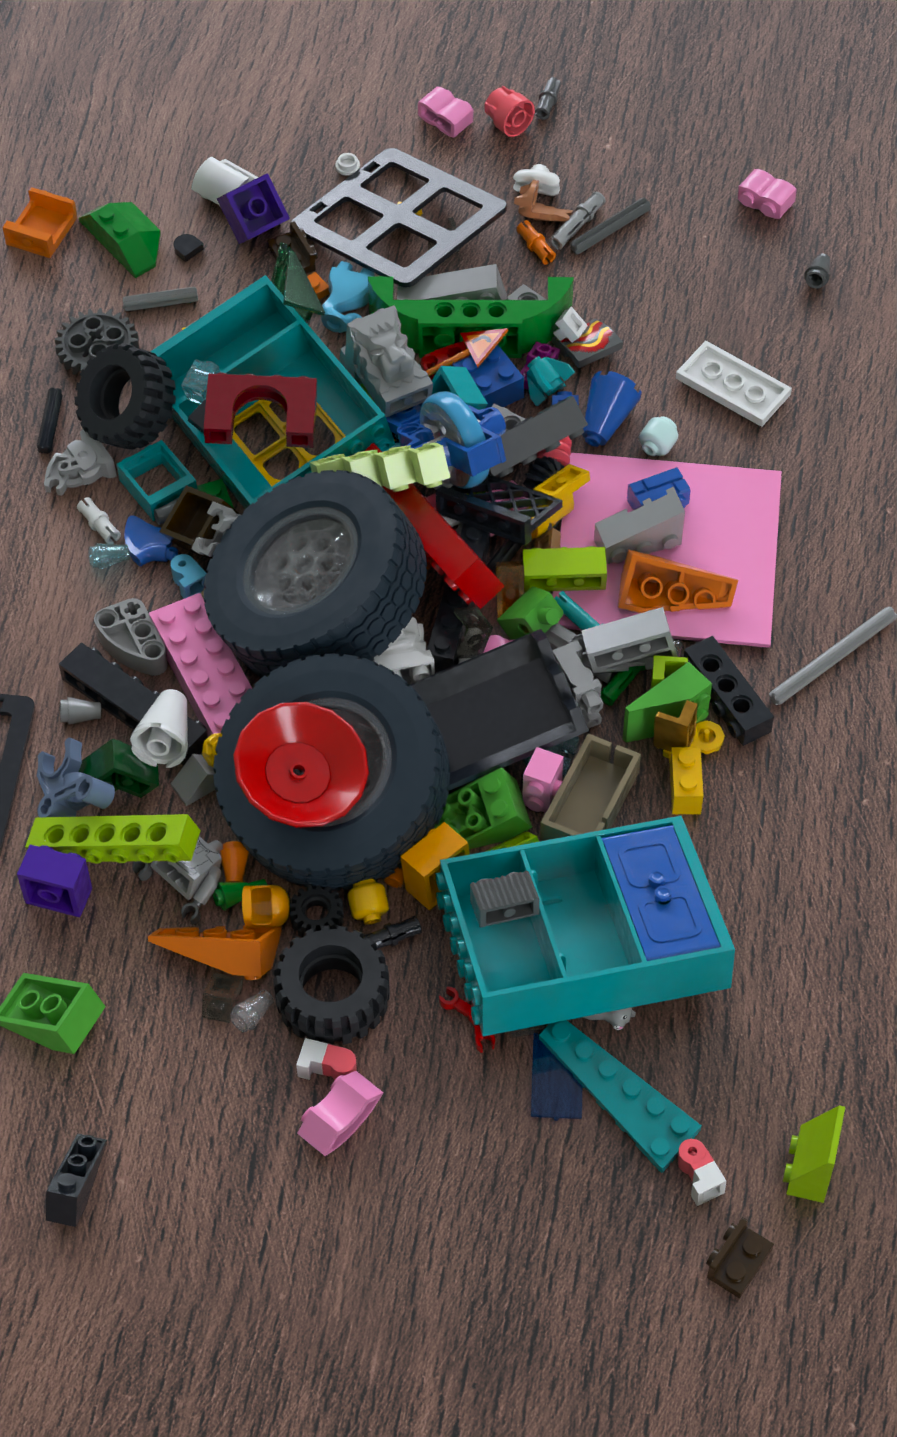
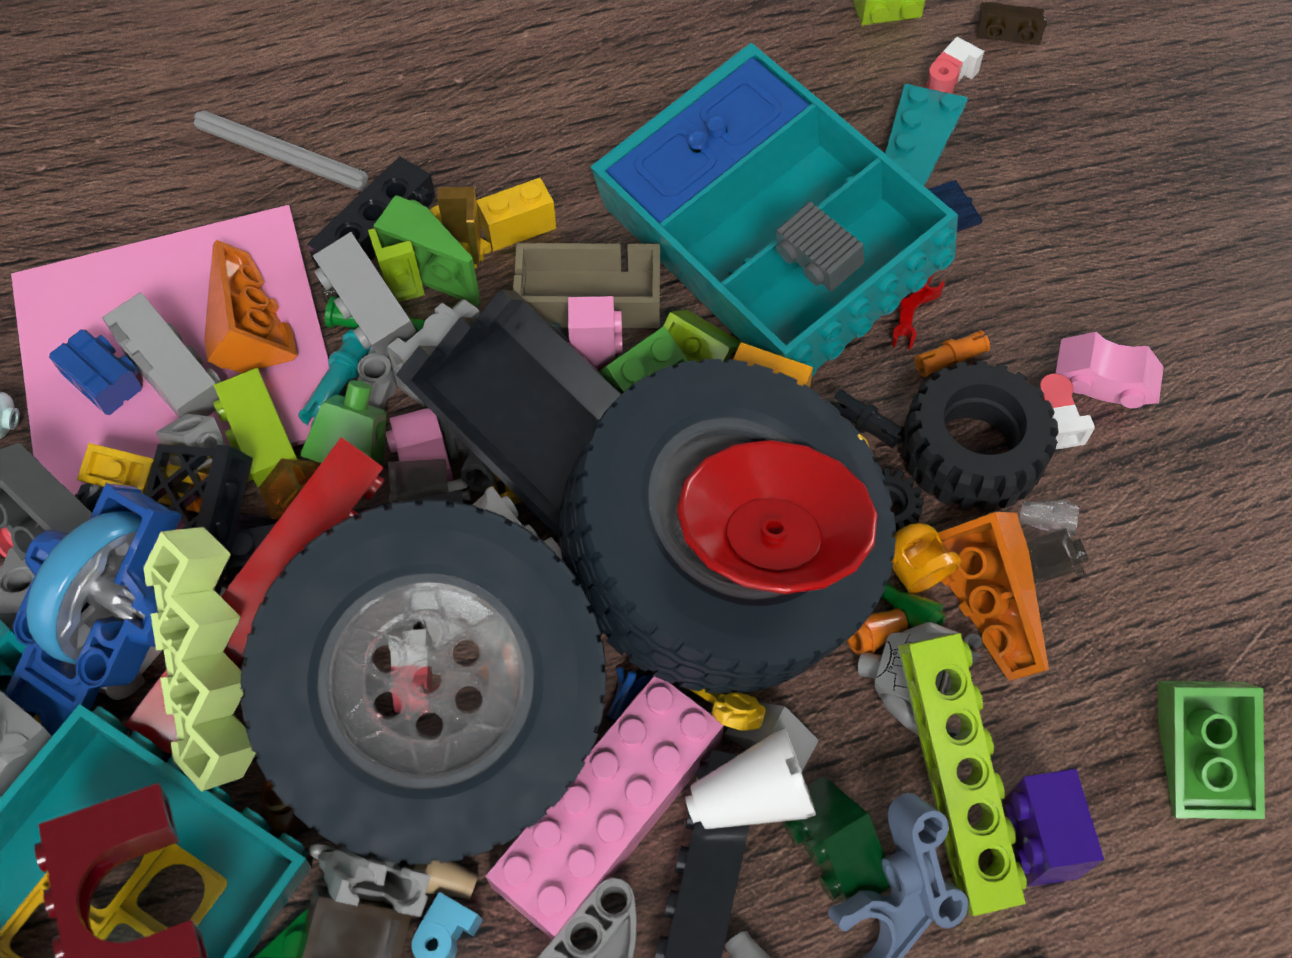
camera: 115 degrees left, 5 degrees up
(416, 1021) = (951, 353): none -> orange pin
(567, 527) = (191, 431): none -> light grey brick

